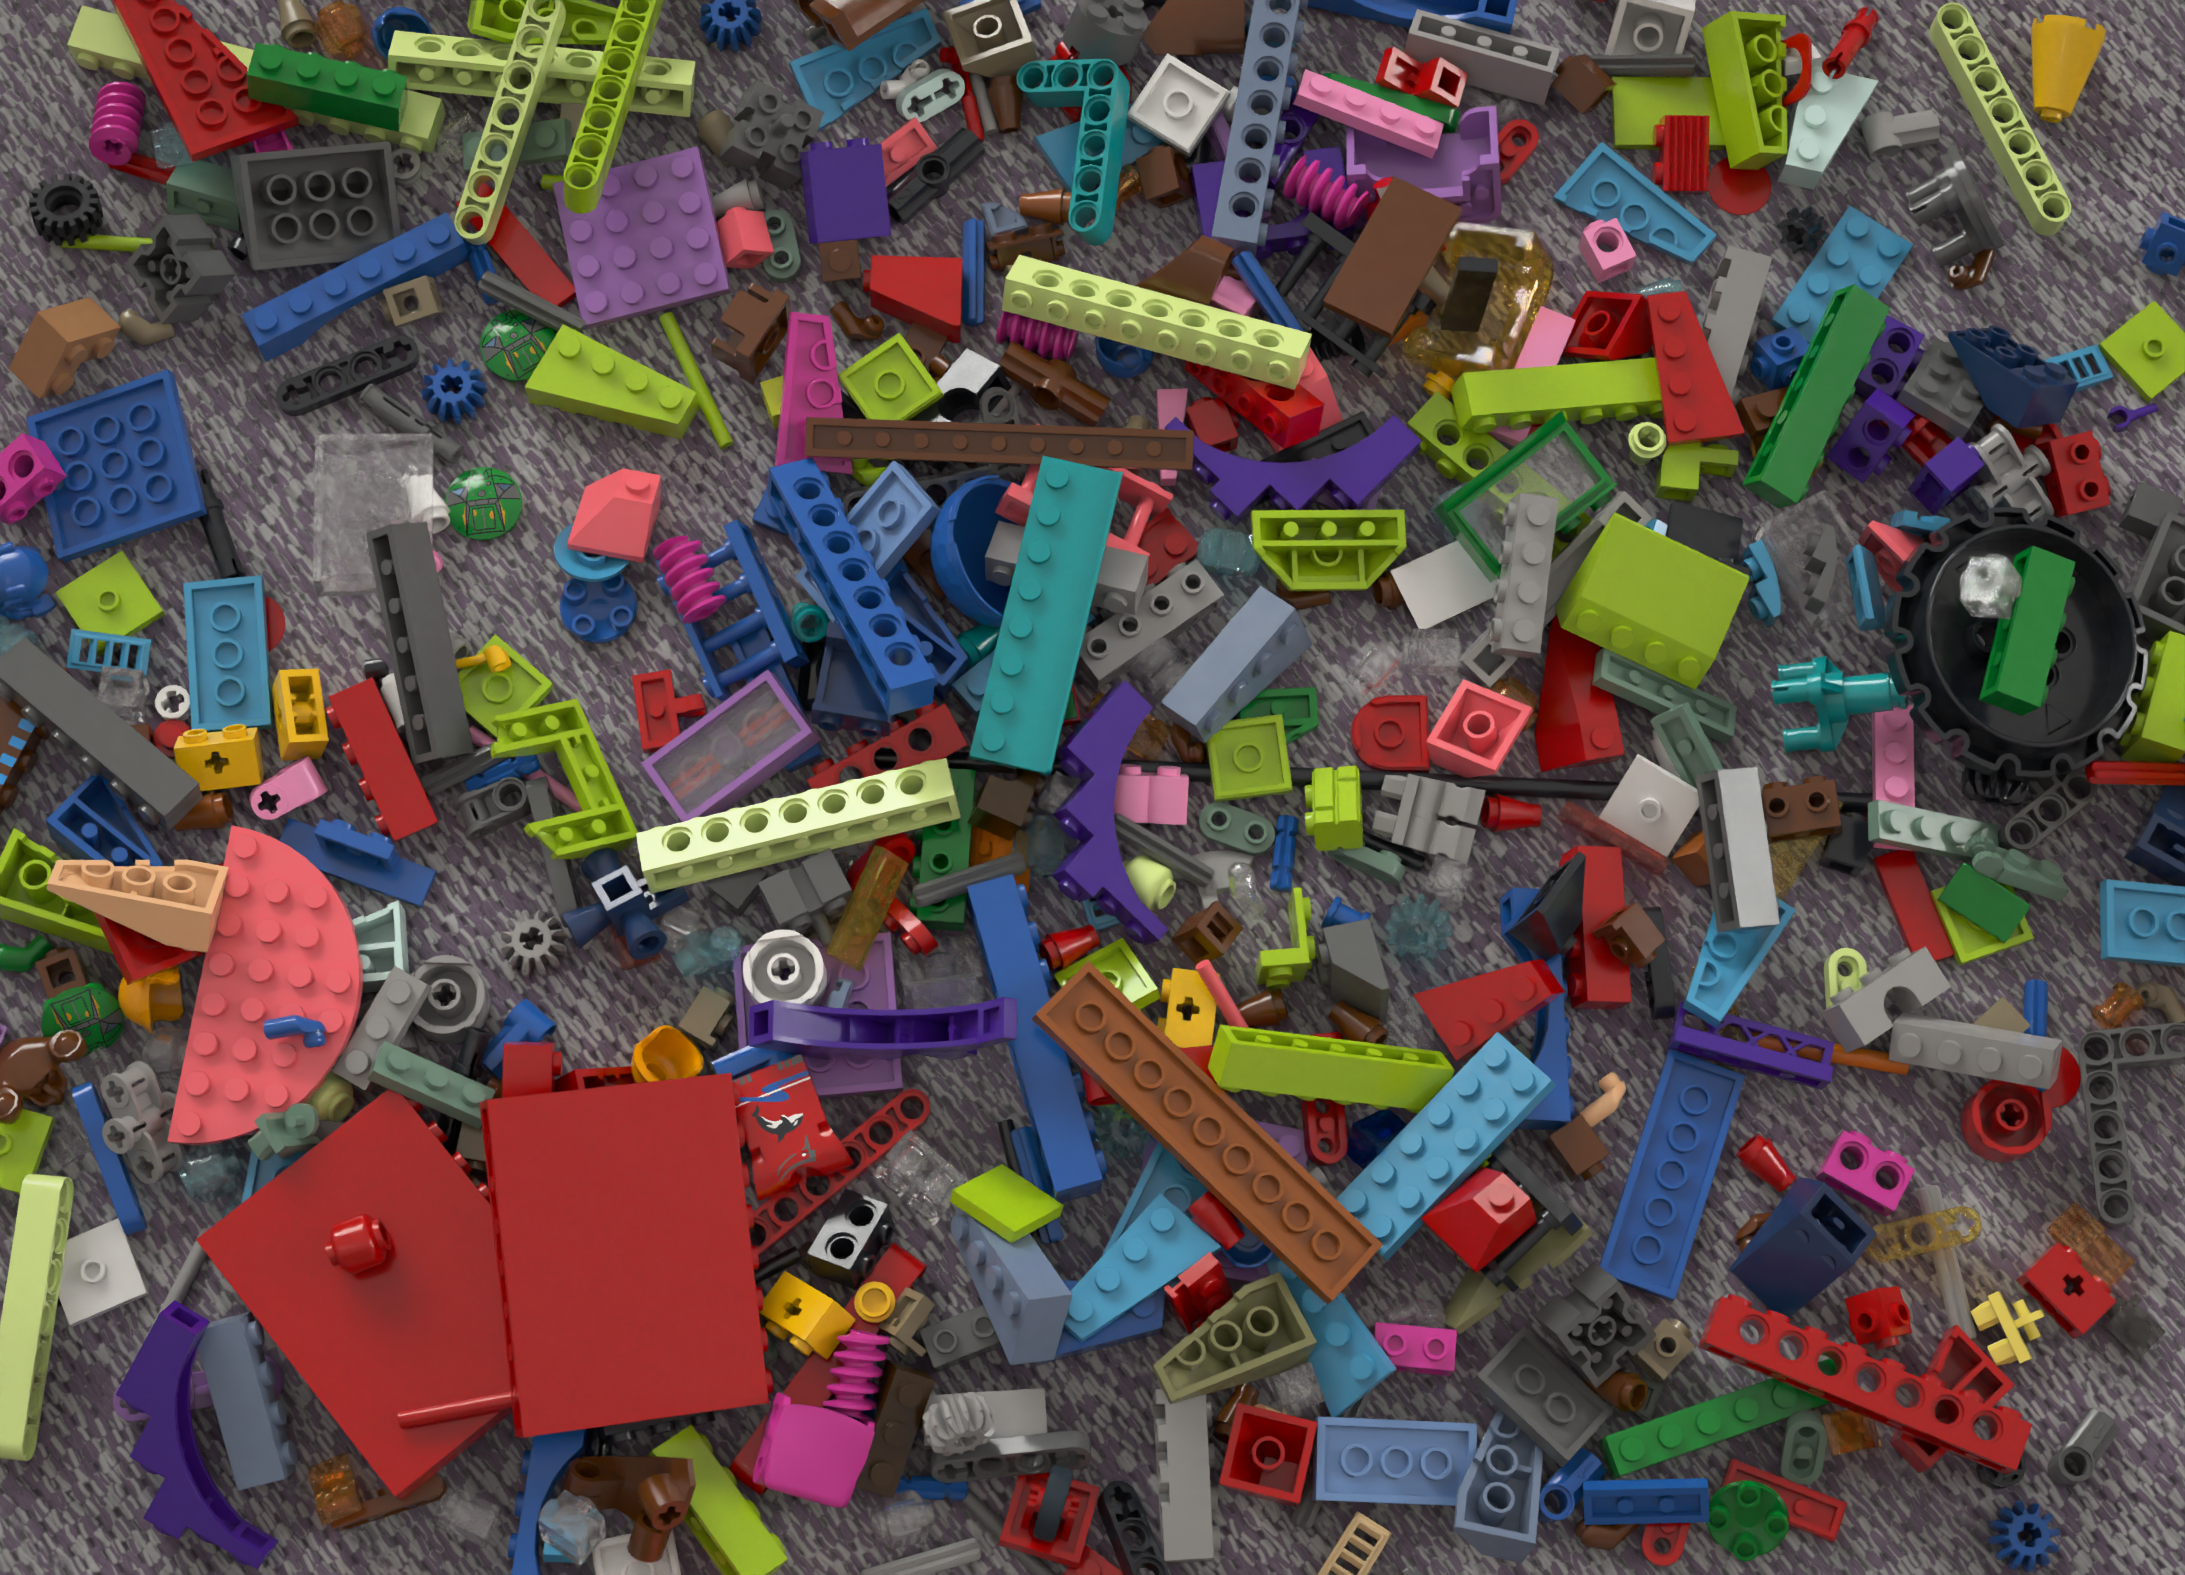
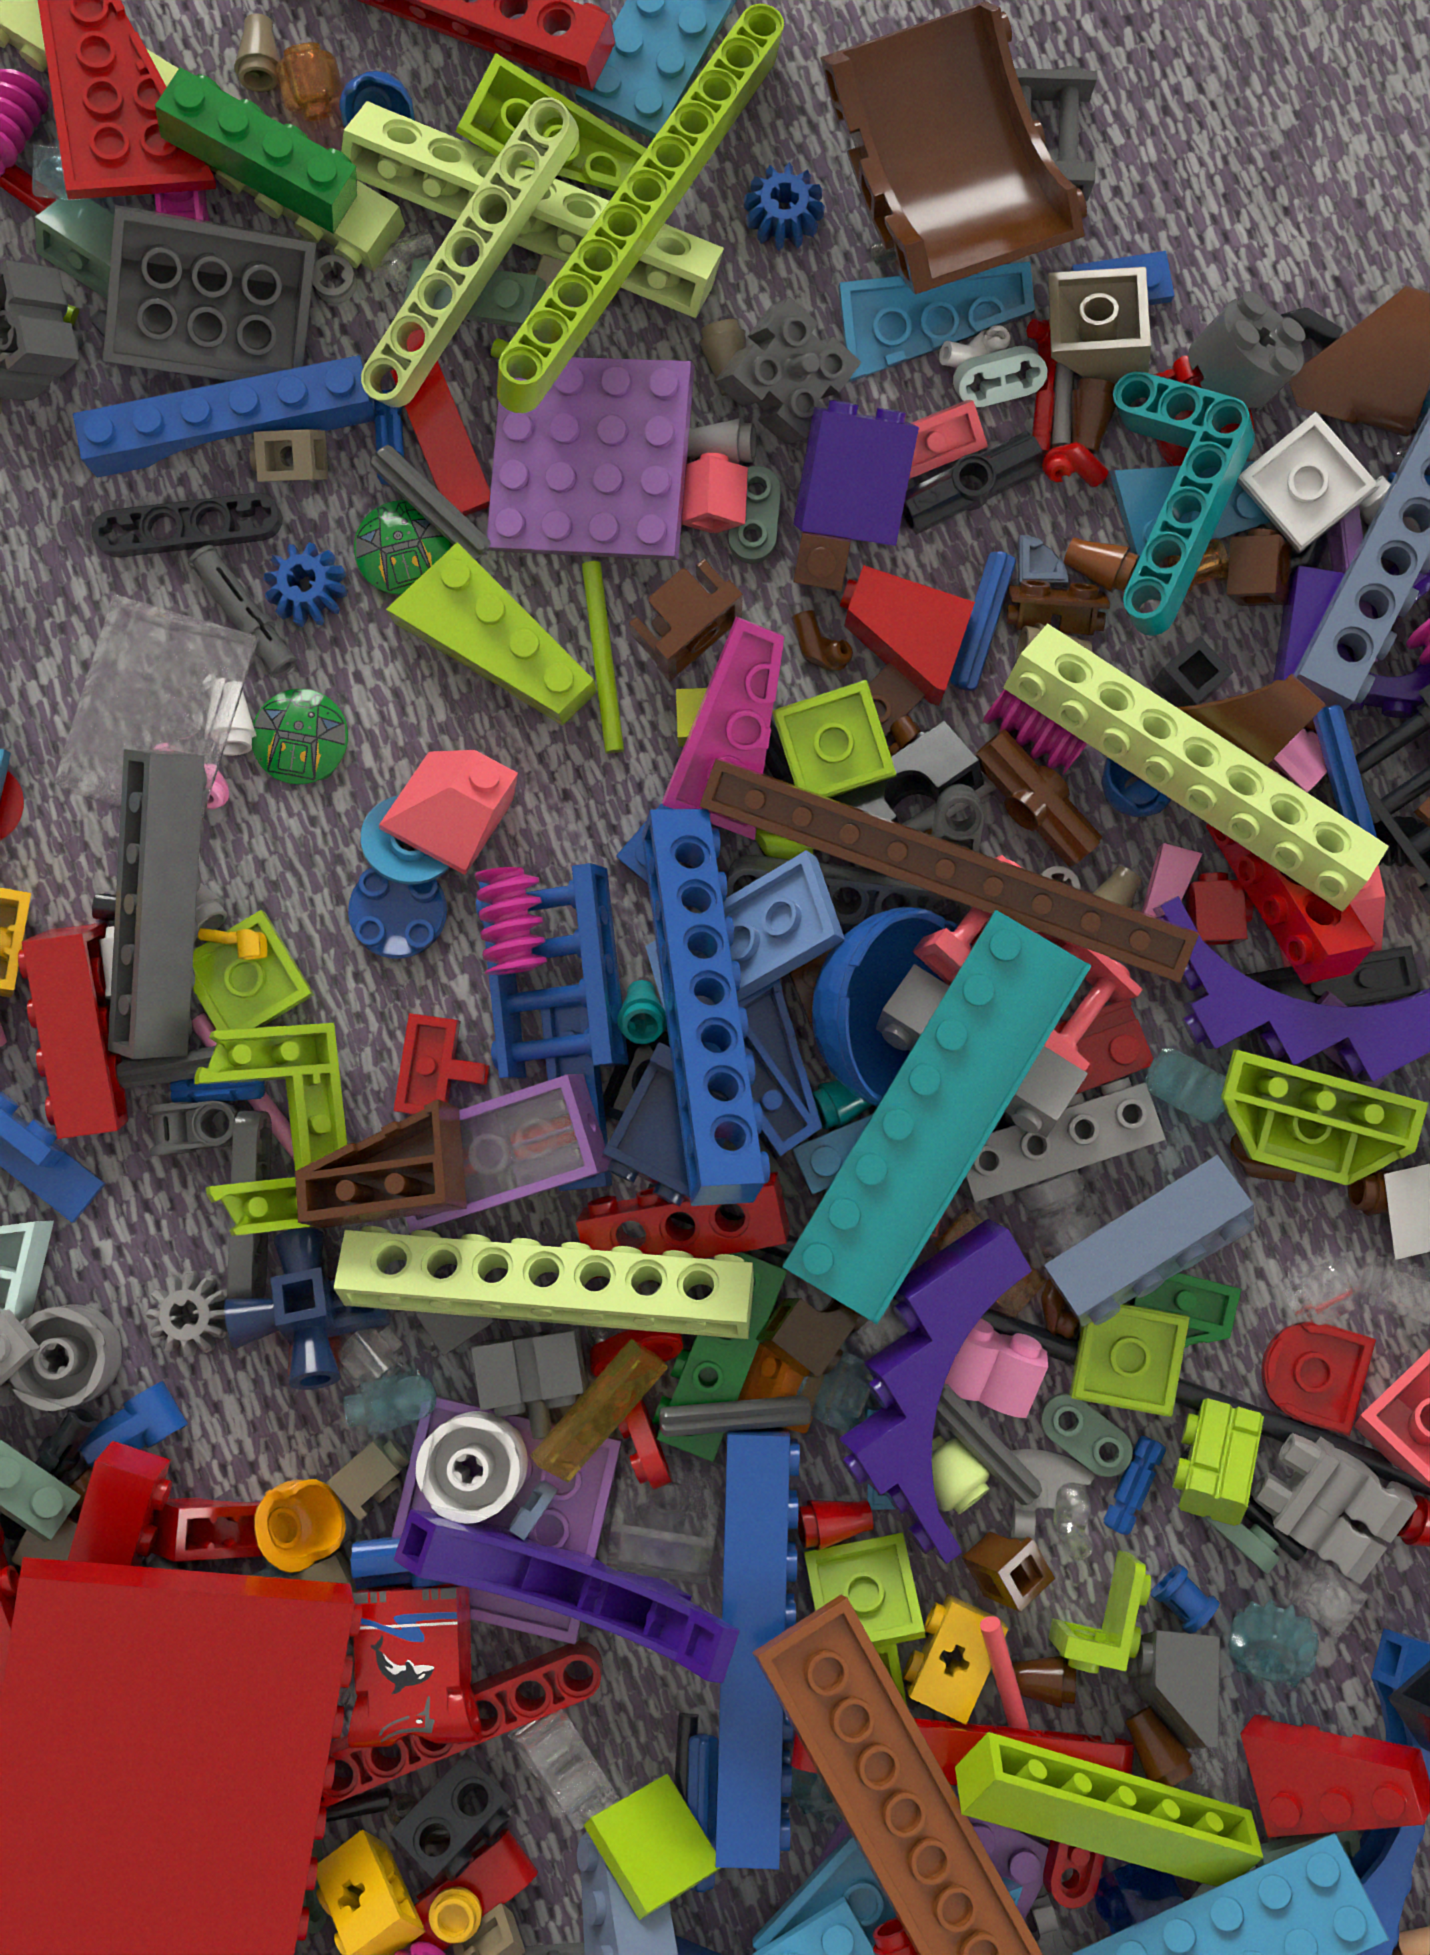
camera: 25 degrees right, 10 degrees up
(656, 781) = (393, 1174): none -> reddish brown wedge
(1003, 138) = (1071, 459): none -> red arm
(1138, 261) = (1192, 675): none -> black brick

